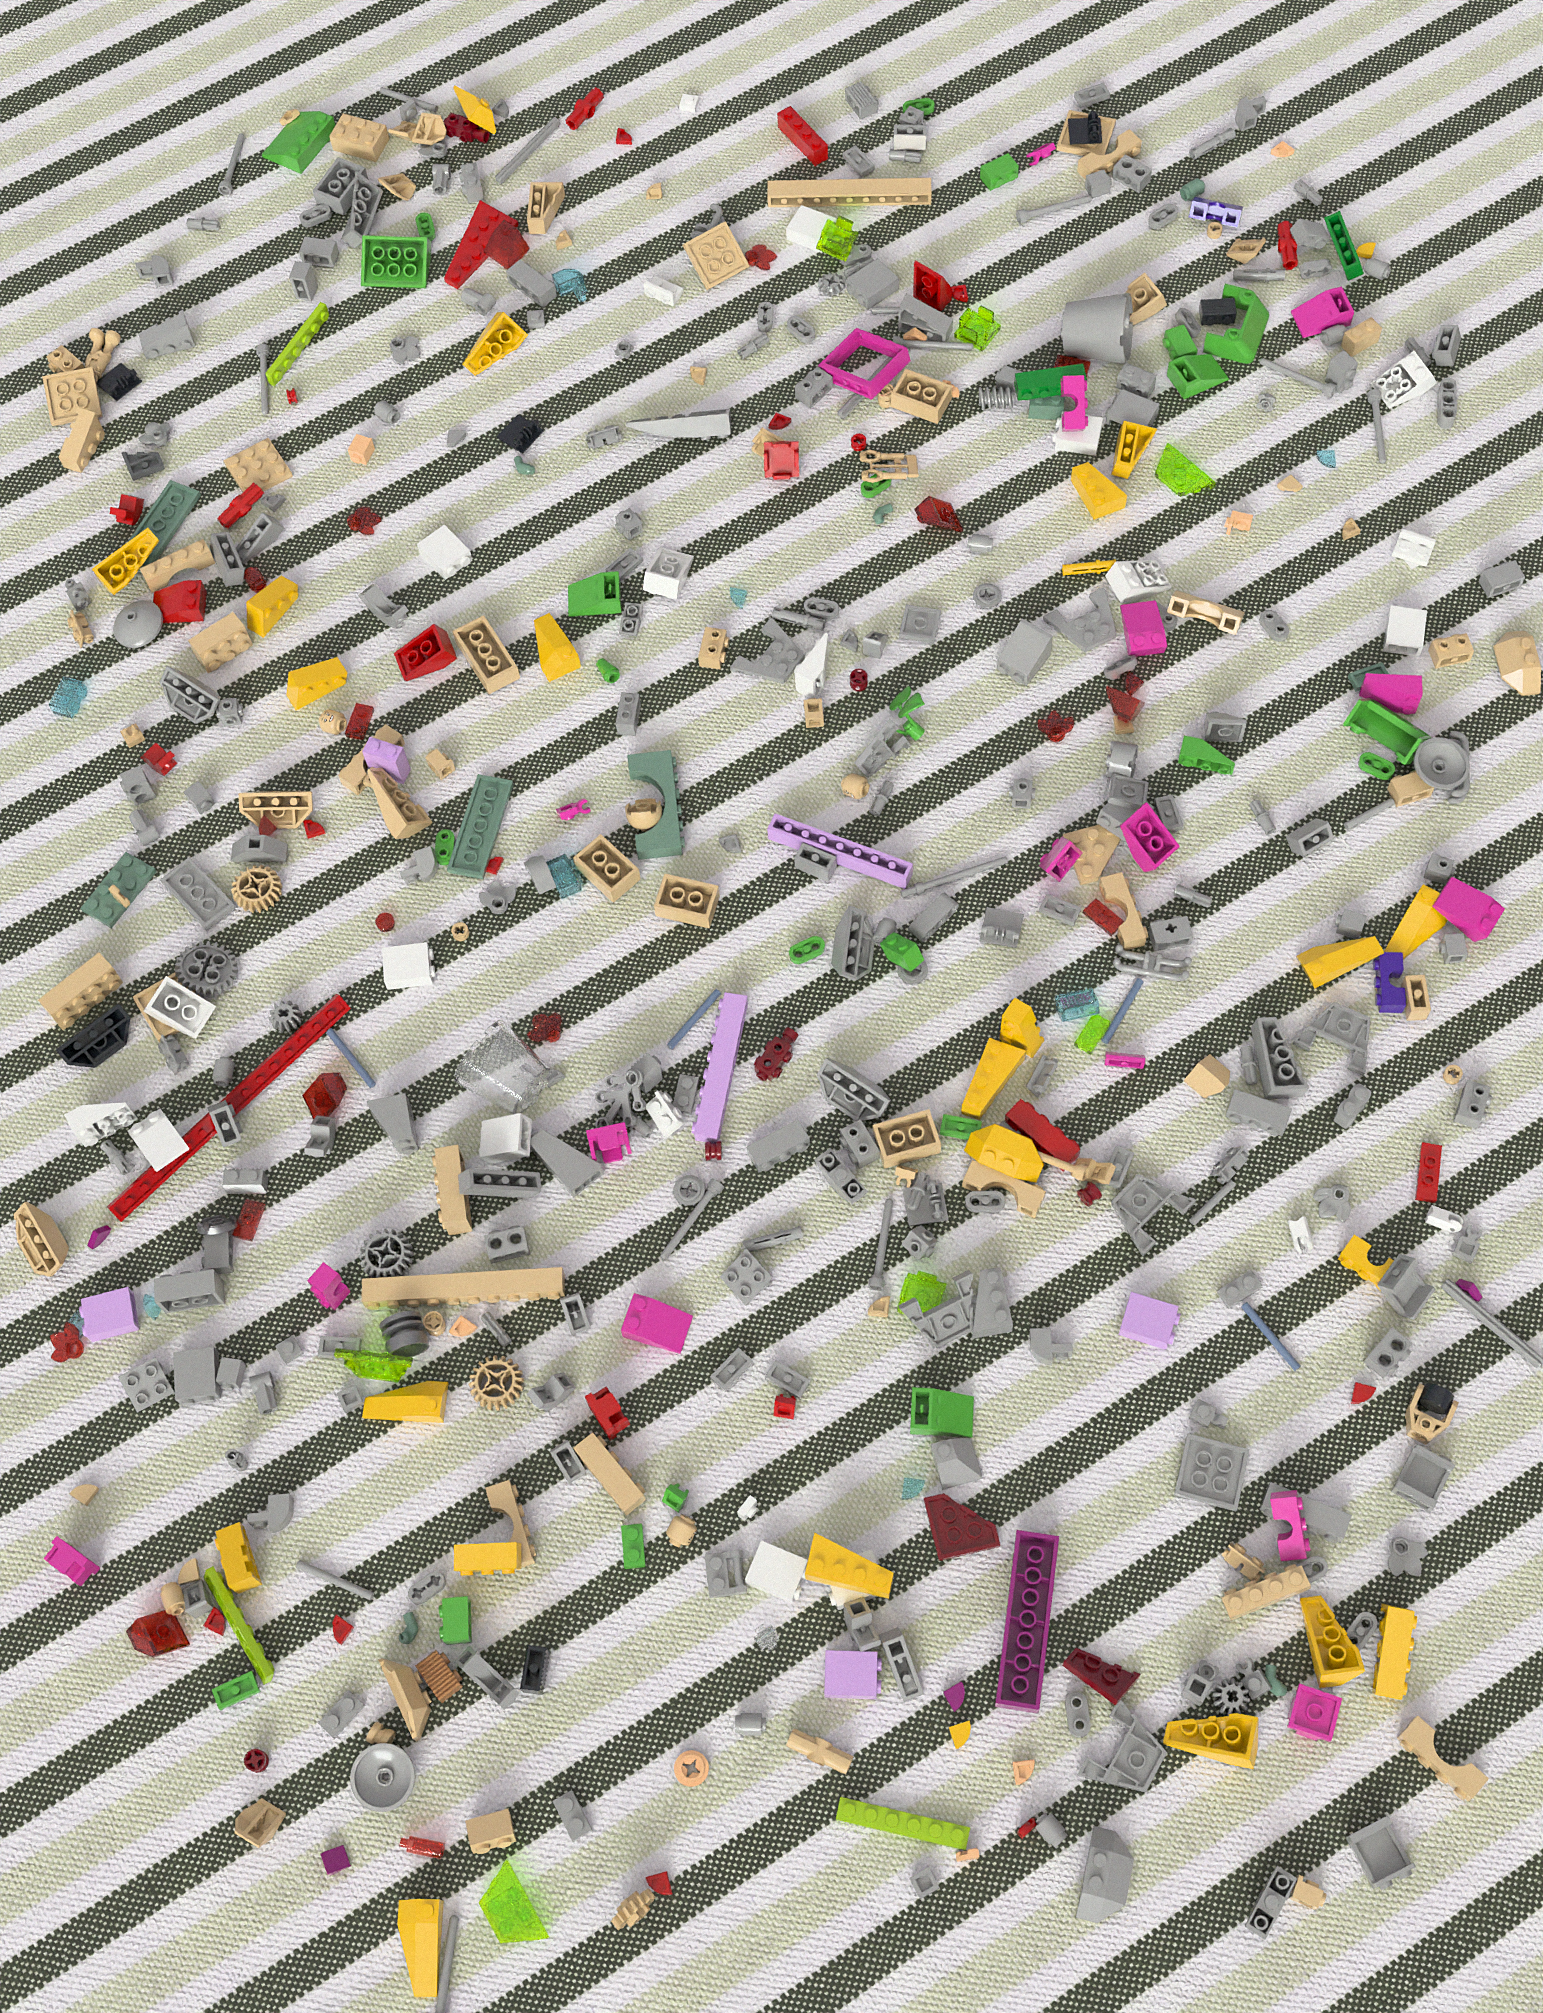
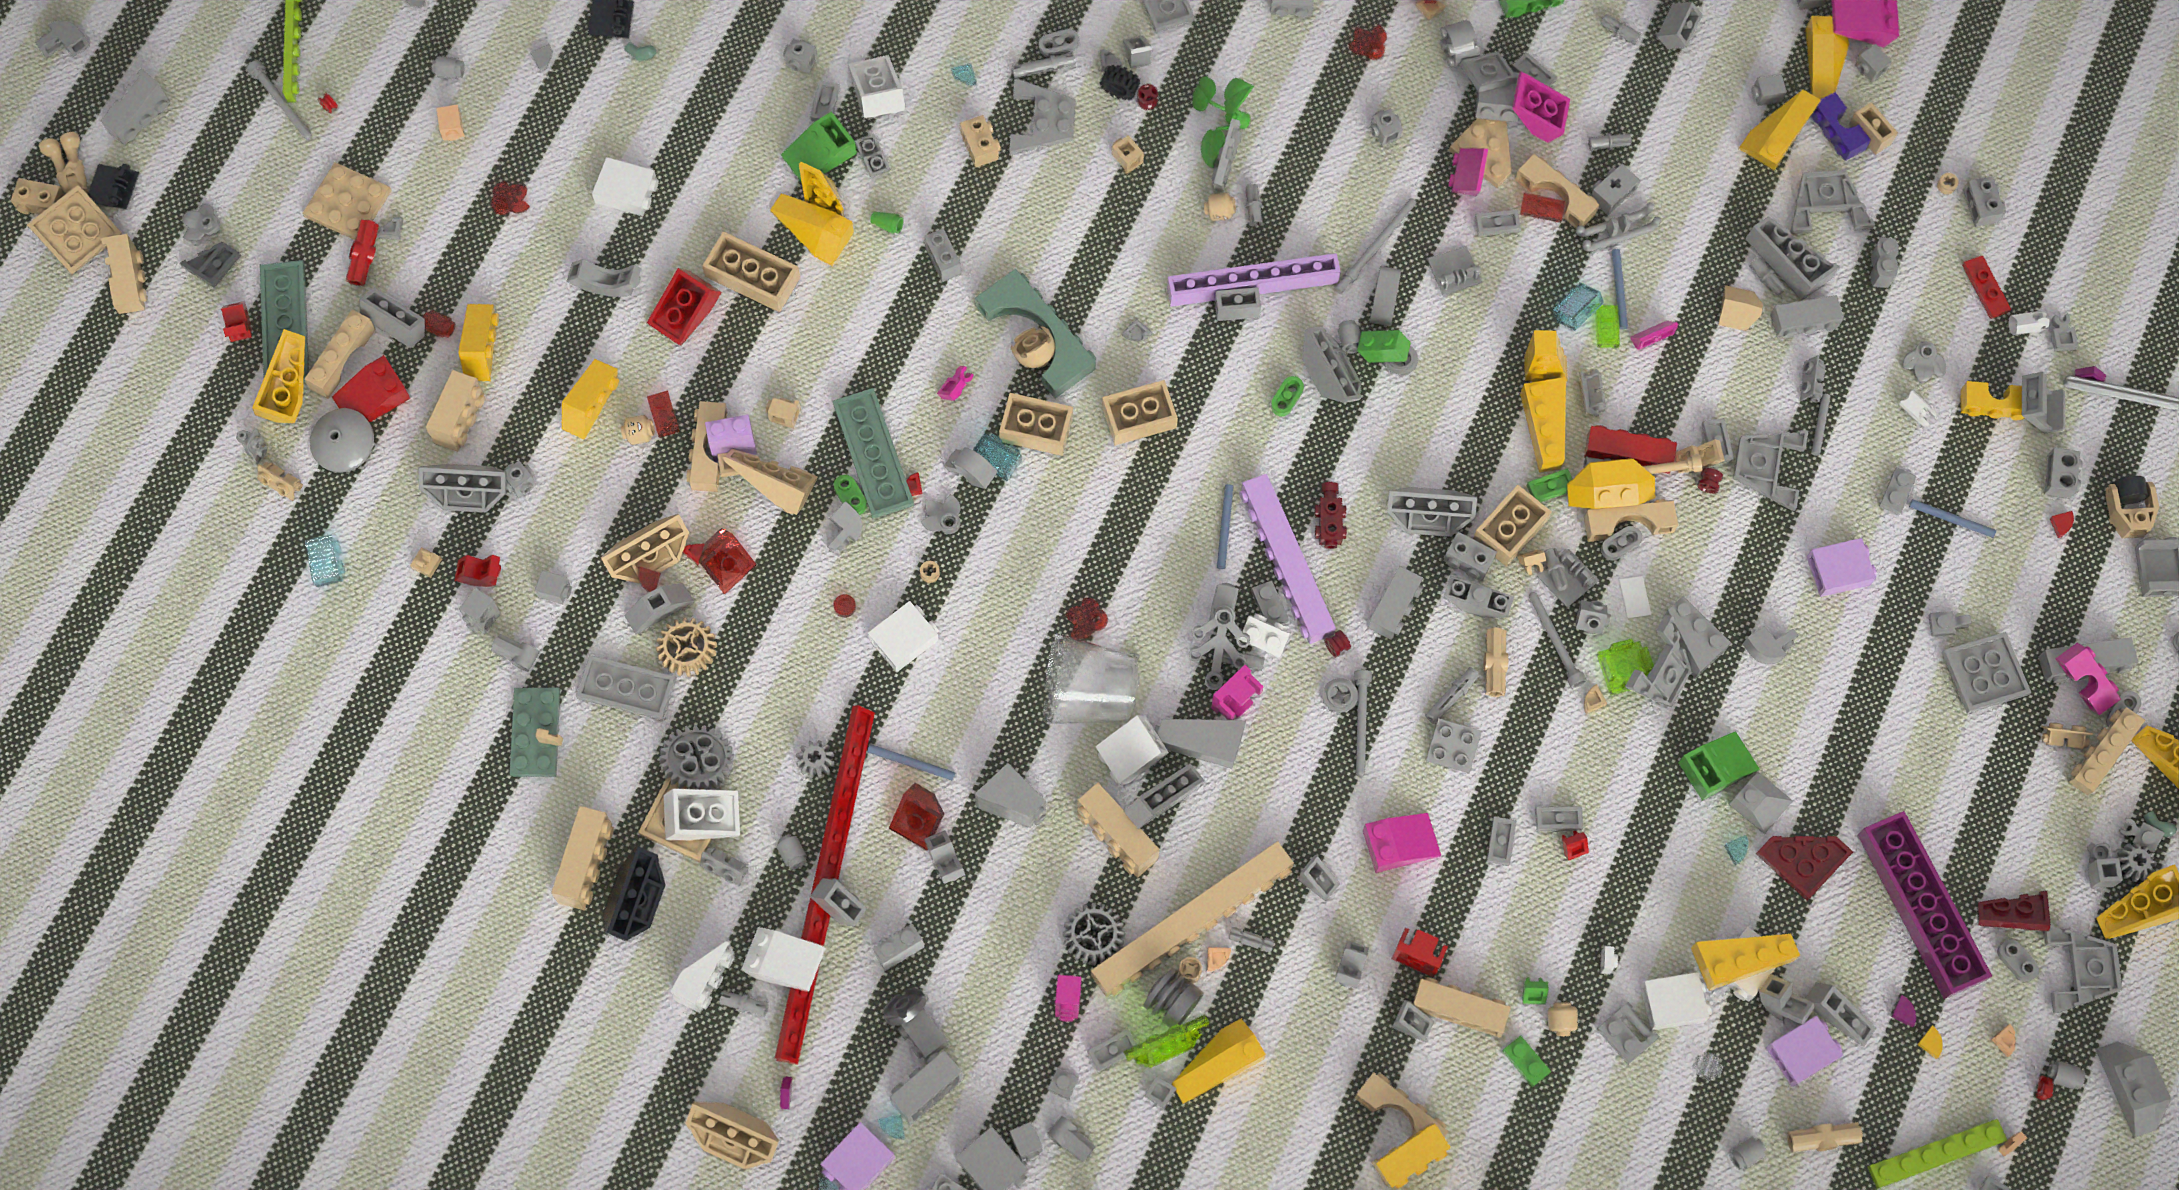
camera: 40 degrees left, 5 degrees up
(249, 1220) = (928, 981): clear red plate -> none
(260, 536) = (408, 274): light grey slope -> none
(324, 844) = (725, 560): none -> clear red slope
(502, 1377) = (1301, 992): tan gear -> none
(507, 1249) = (1209, 855): light grey brick -> none
(572, 622) = (820, 189): none -> yellow wedge
(812, 671) = (1100, 109): white slope -> none
(823, 1234) = (1495, 662): none -> tan piece
(842, 658) = (1120, 82): none -> black tyre
(969, 1249) = (1635, 597): none -> white sticker

